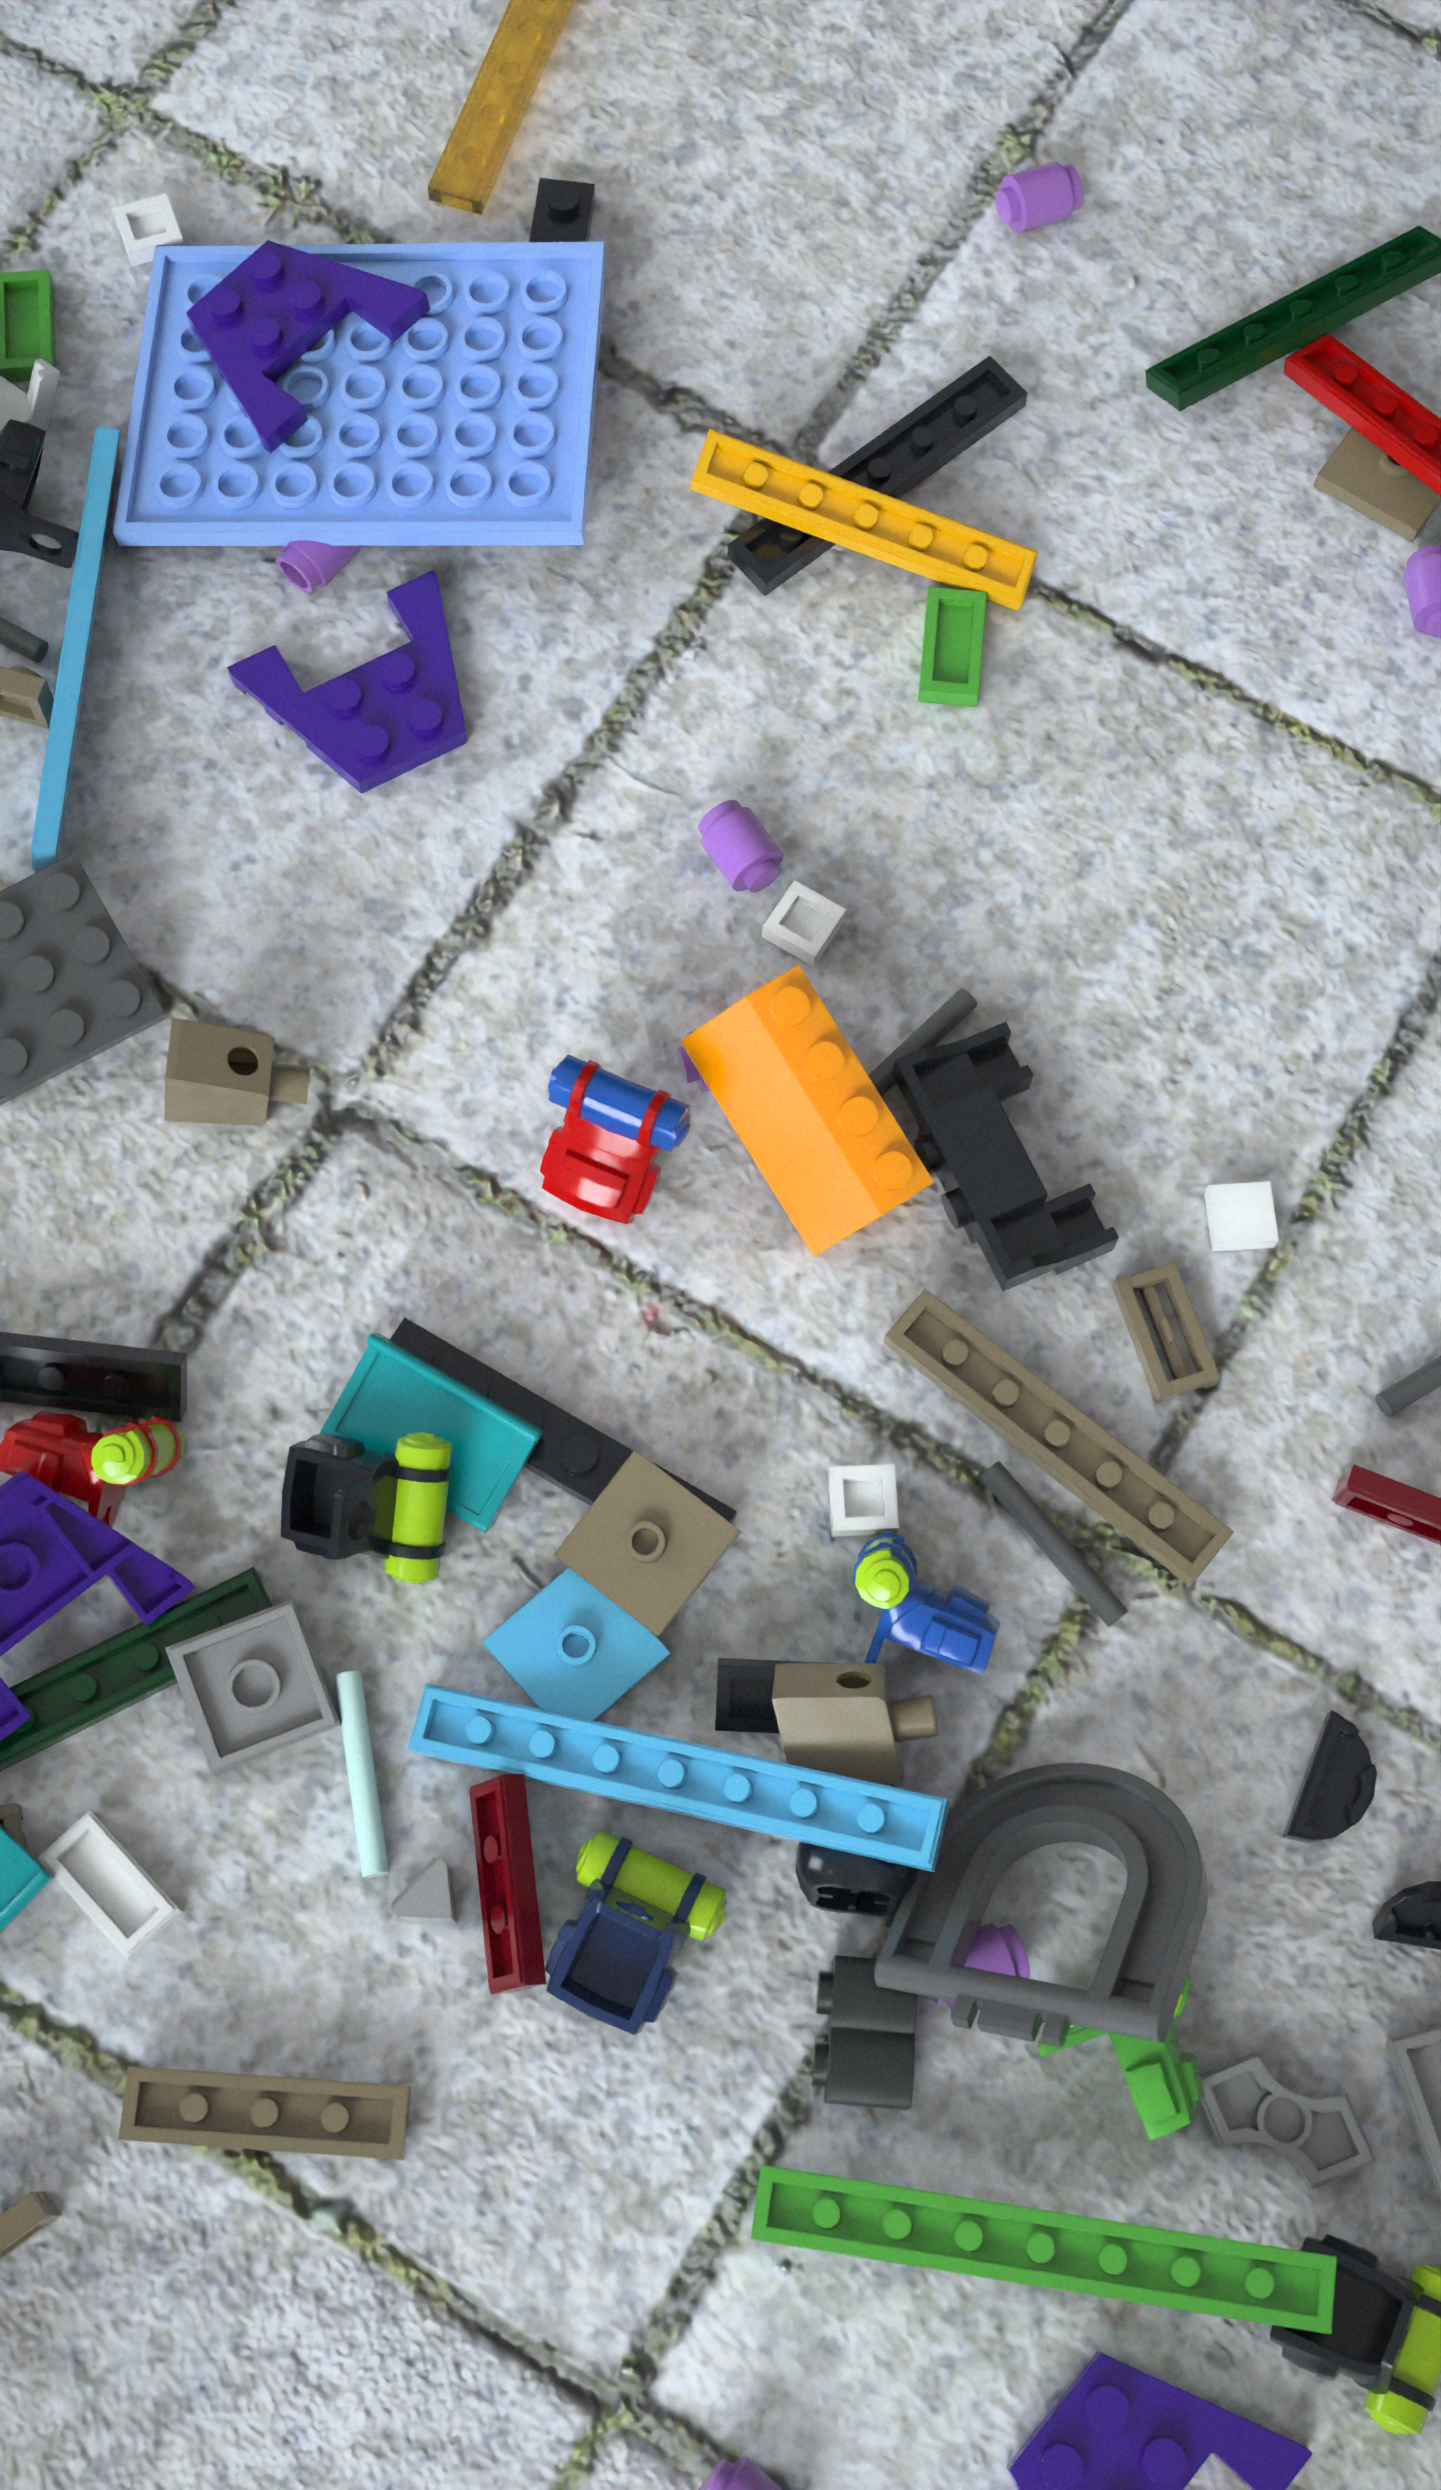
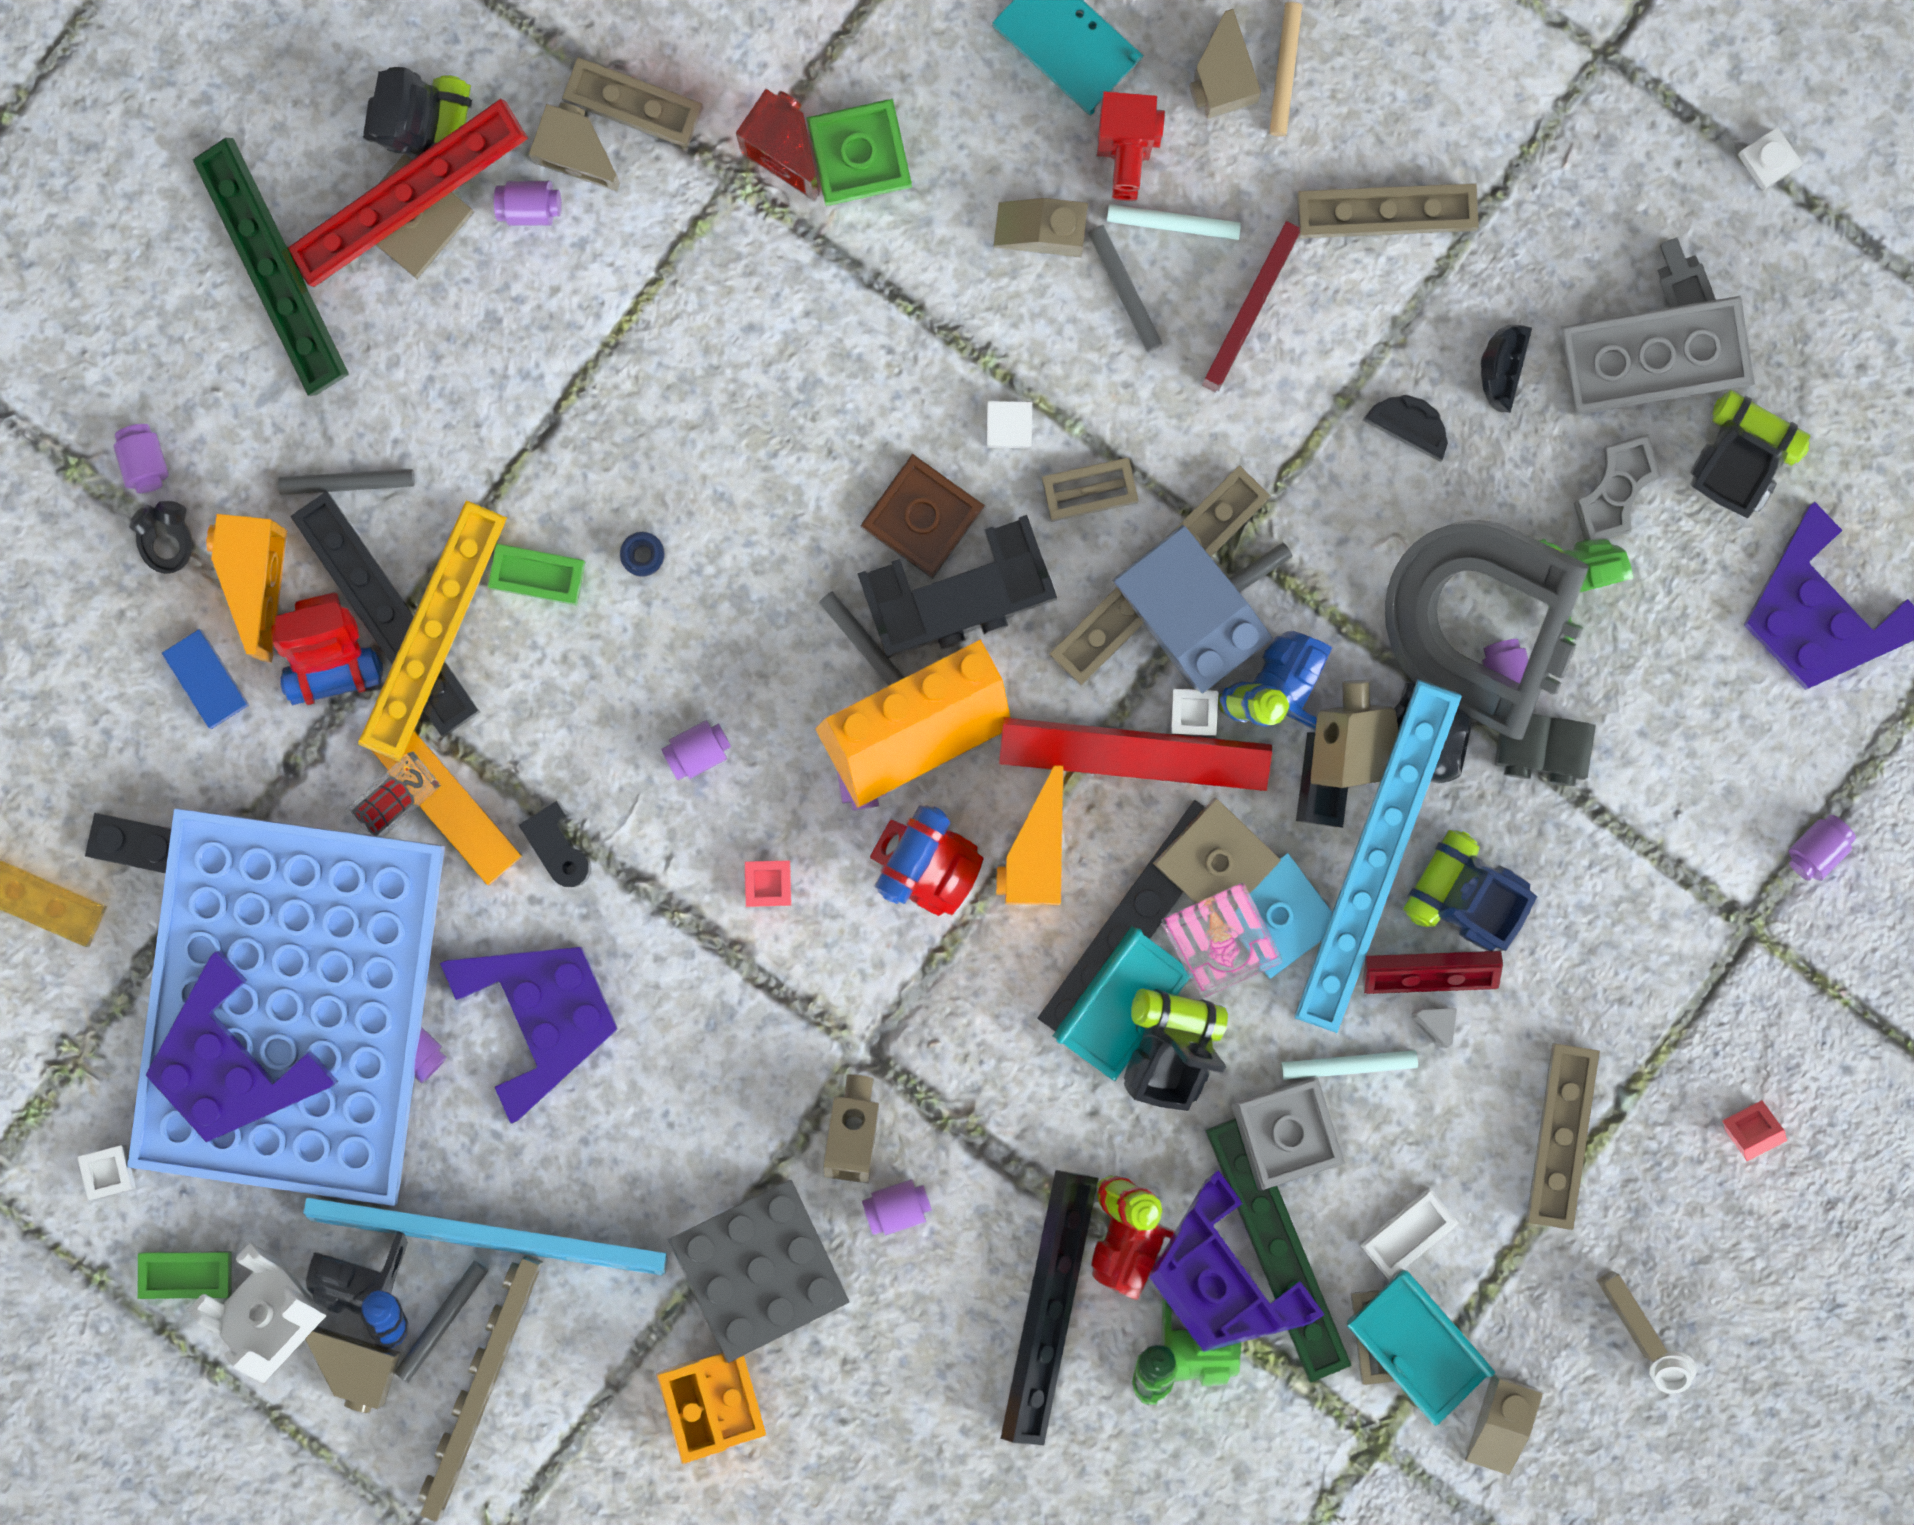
camera: 80 degrees left, 15 degrees up
(128, 1149) = (896, 1207): none -> medium lavender brick
(286, 2434) = (1754, 1130): none -> coral plate
(531, 1559) = (1222, 940): none -> clear tile
(568, 951) = (768, 883): none -> coral plate
(596, 690) = (562, 861): none -> black leg
(637, 571) = (461, 817): none -> light orange tile
(643, 1285) = (1035, 858): none -> light orange slope
(644, 498) = (393, 796): none -> tile
(773, 291) = (205, 679): none -> blue tile
(794, 1426) = (1135, 754): none -> red tile
(803, 923) = (760, 709): white plate -> none
(824, 393) = (322, 651): none -> red piece
(899, 309) = (250, 569): none -> light orange slope
(972, 237) = (173, 516): none -> black piece
(997, 751) = (638, 540): none -> dark blue plate
(1013, 1474) = (1192, 609): none -> sand blue slope
(1042, 425) = (346, 481): none -> dark grey bar
(1046, 2249) = (1686, 652): bright green plate -> none
(1096, 1113) = (922, 516): none -> reddish brown tile

